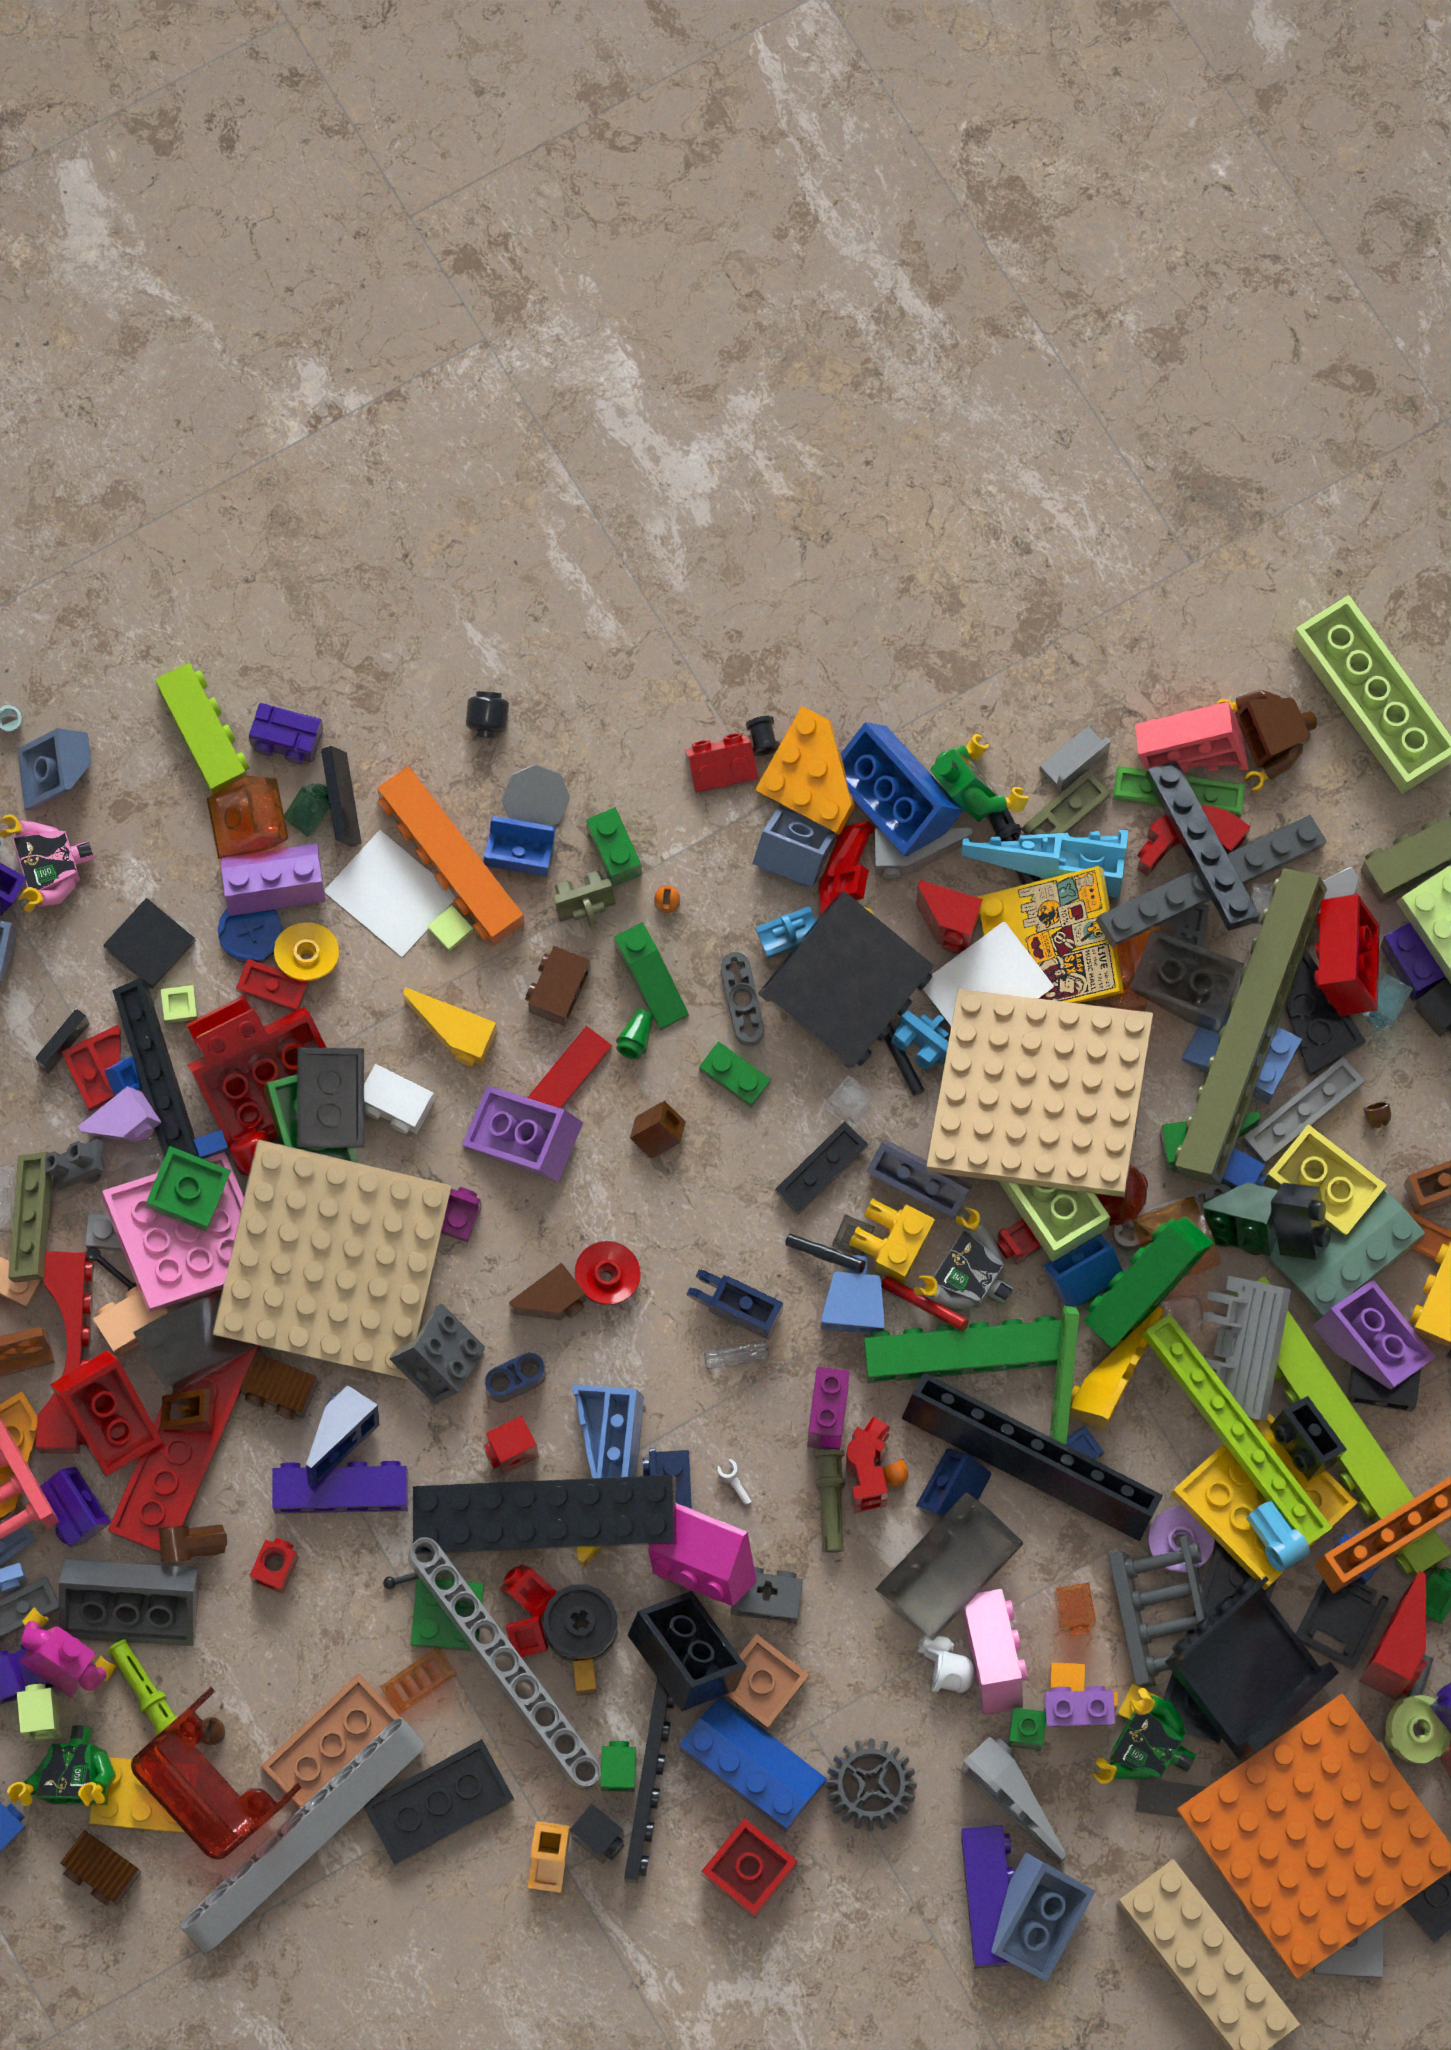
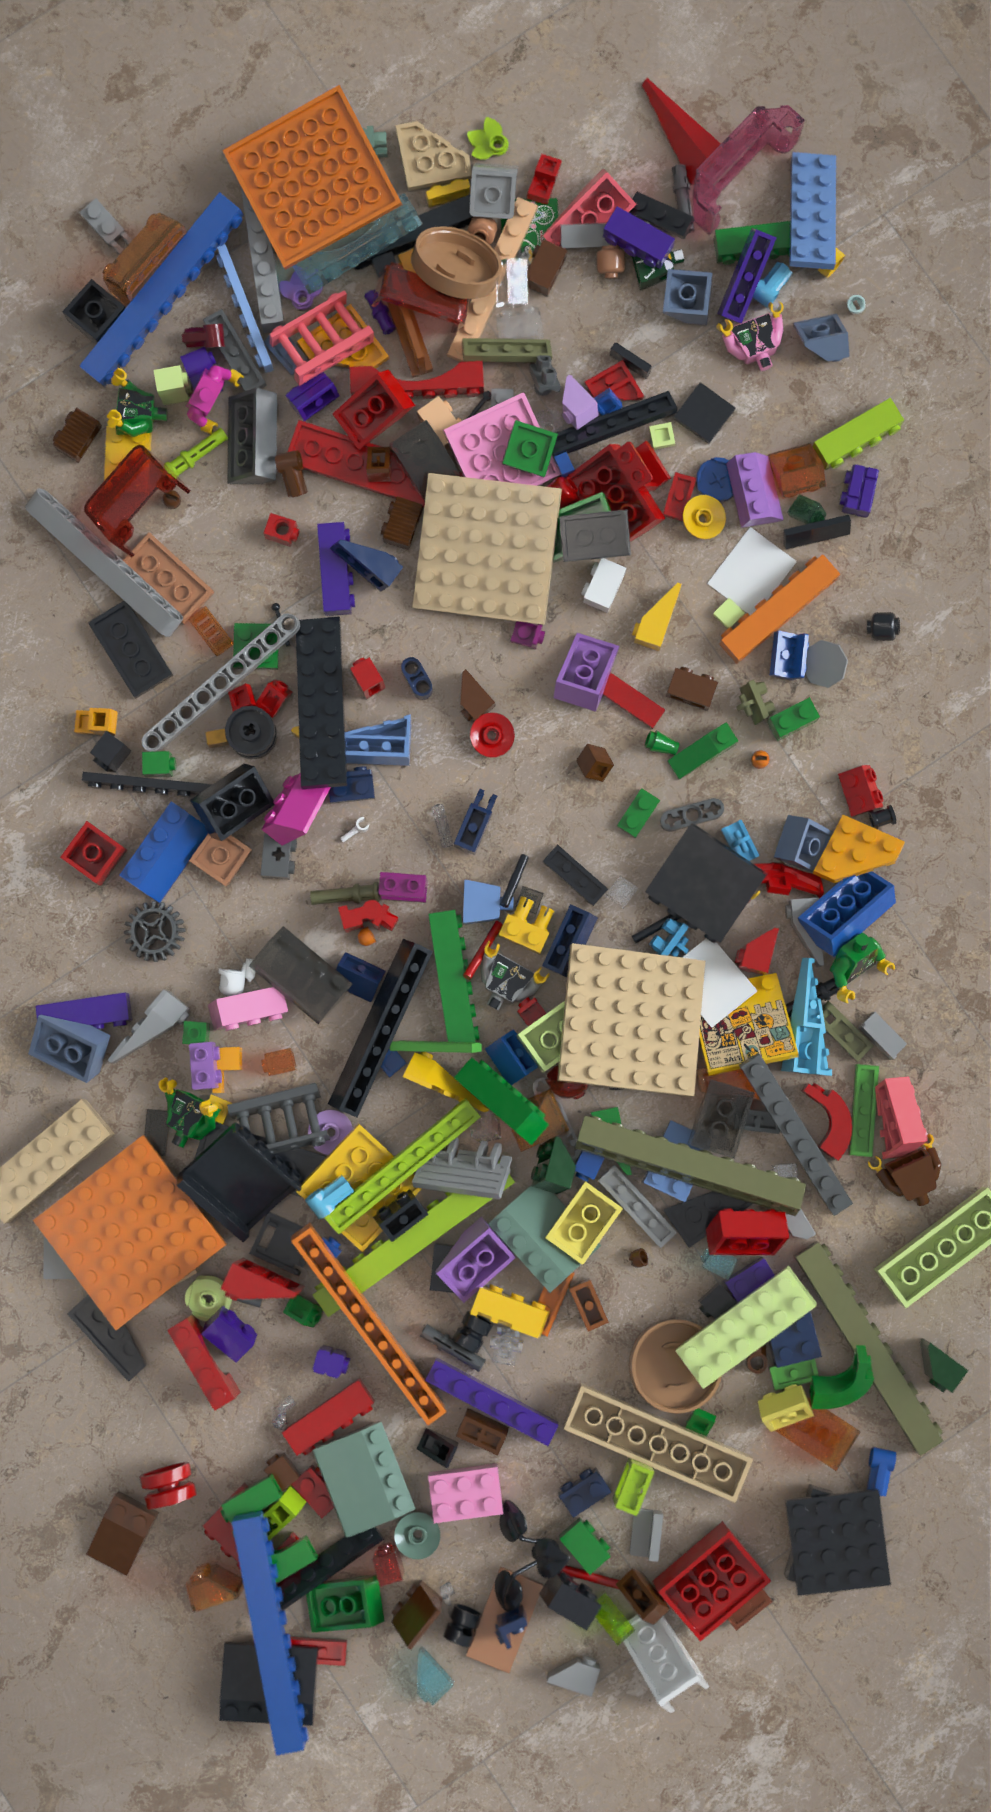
camera: 90 degrees right, 10 degrees up
(439, 1356) = (428, 627): dark grey bracket -> none
(1202, 845) = (819, 1126): plate -> none
(1300, 1221) = (551, 1204): black brick -> none

